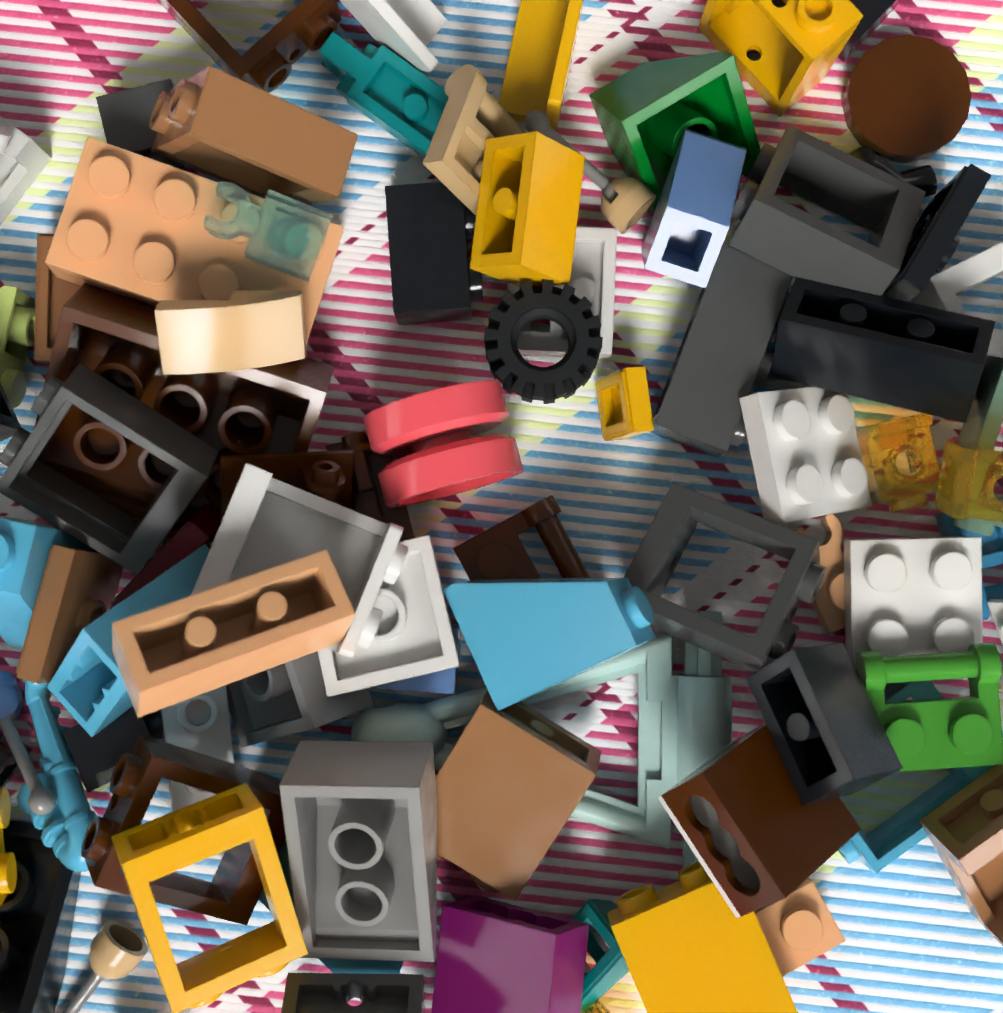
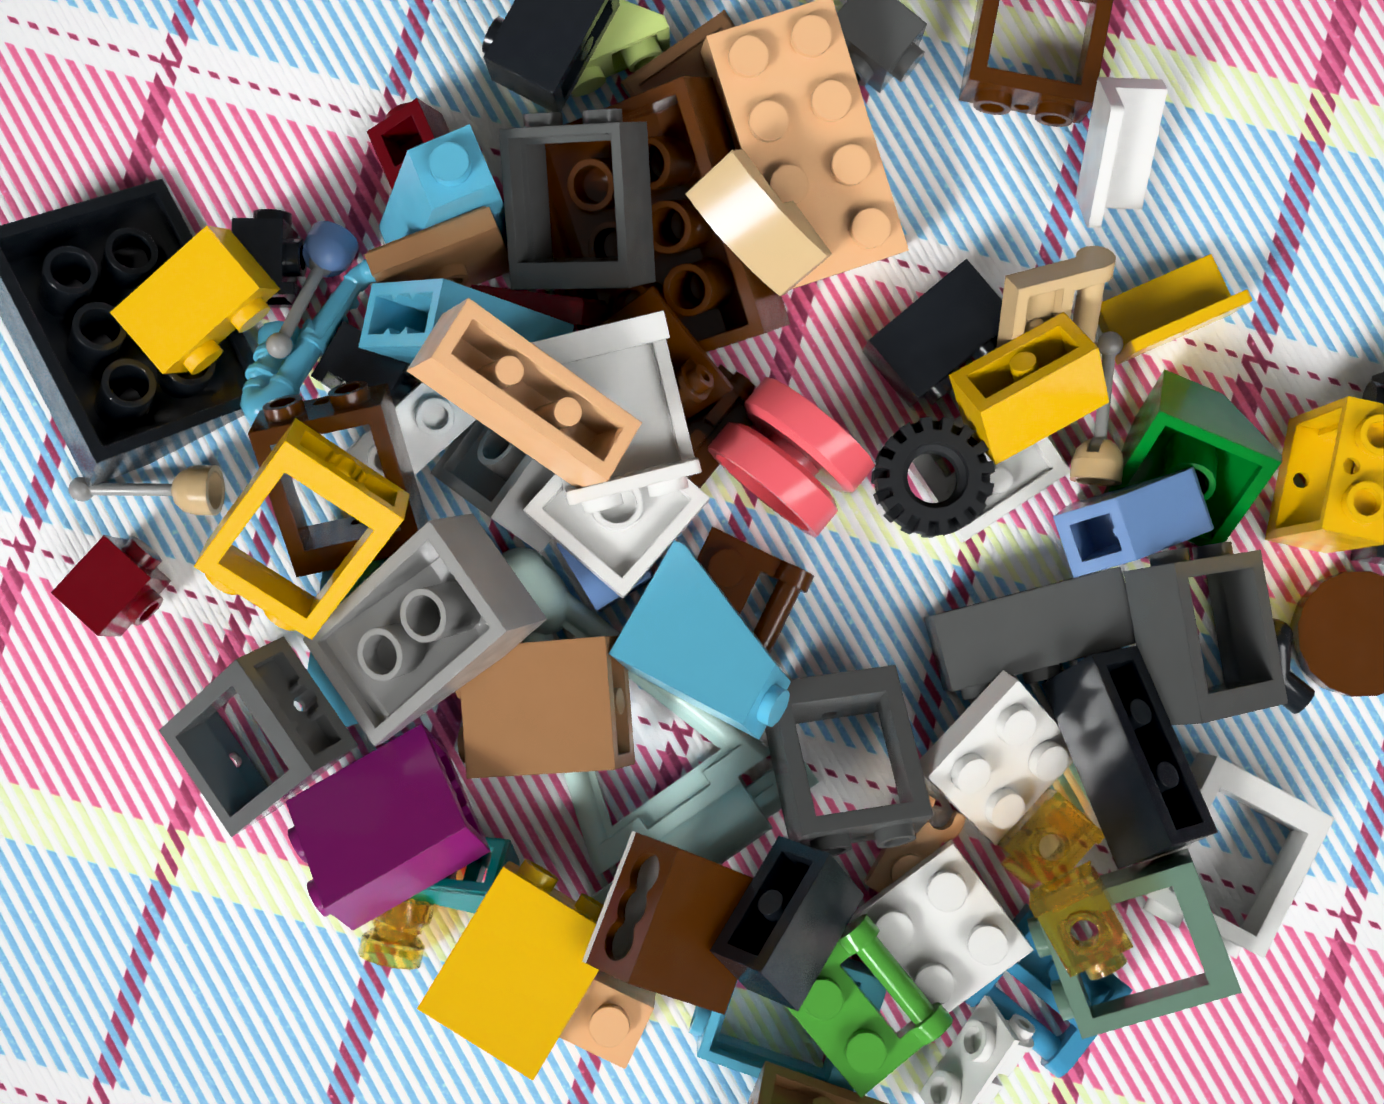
camera: 55 degrees right, 0 degrees up
(251, 138) = (924, 126): medium nougat window -> none
(280, 232) = (867, 204): clear light blue plate -> none
(386, 90) = (1046, 203): teal hinge -> none
(624, 404) = (930, 581): yellow tile -> none
(935, 233) = (1251, 736): black plate -> none

